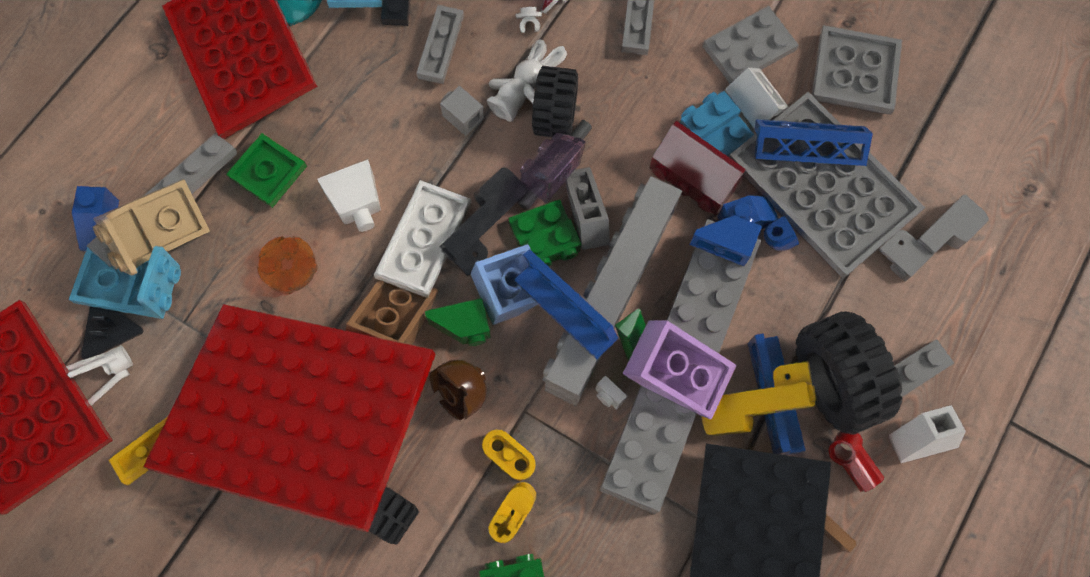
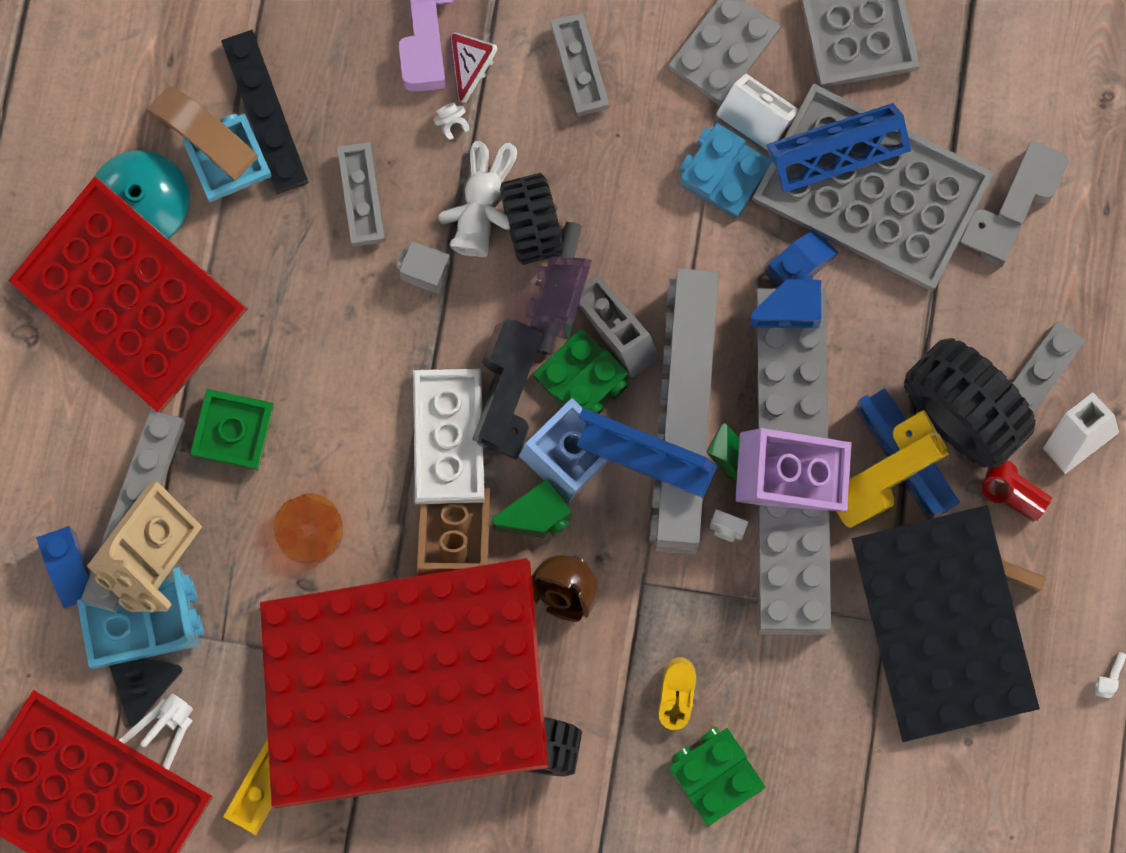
camera: 20 degrees left, 5 degrees up
(353, 194) = (346, 419): white torso -> none
(509, 455) = (649, 632): yellow plate -> none
(696, 168) = (721, 233): slope -> none
(780, 235) = (844, 271): blue piece -> none

